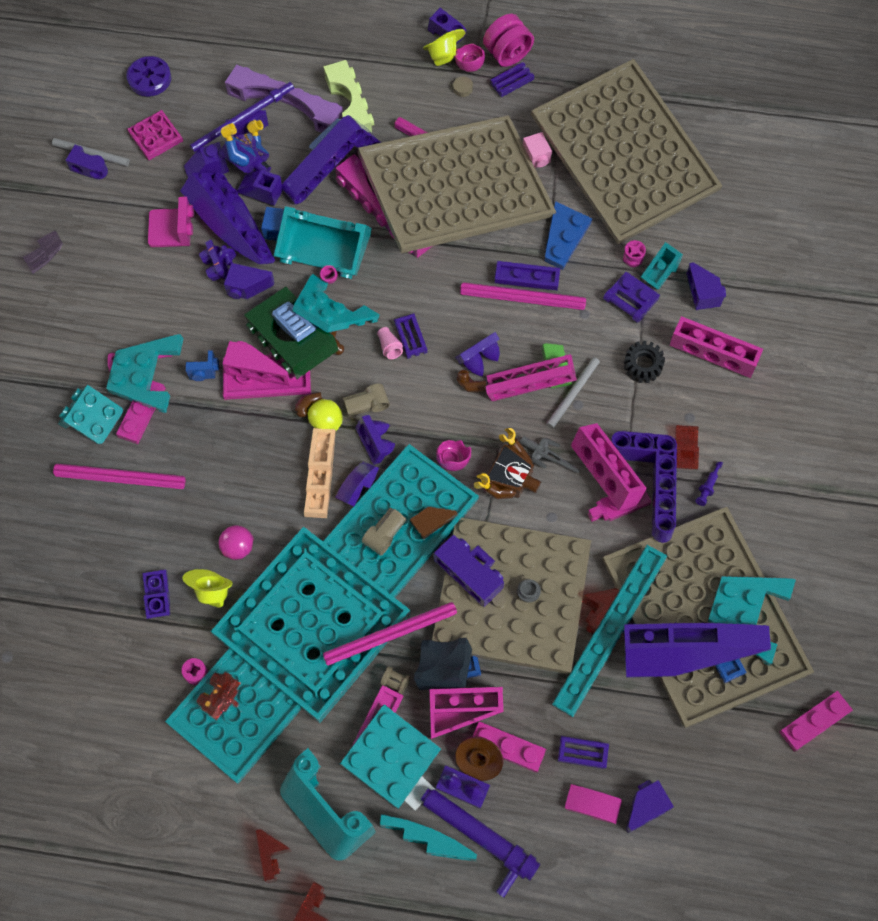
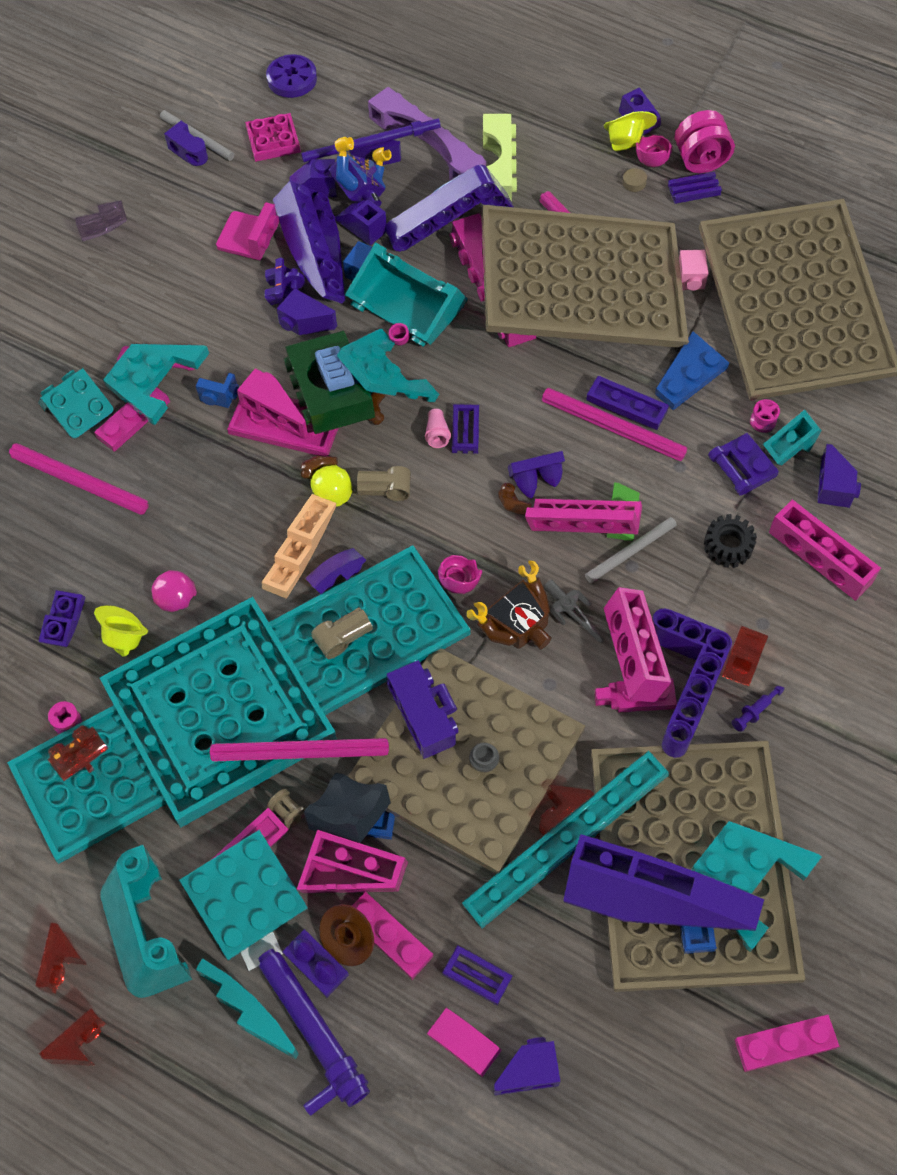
camera: 20 degrees right, 5 degrees down
(370, 433) = (373, 519): dark purple tile -> none
(431, 520) = (403, 638): reddish brown tile -> none

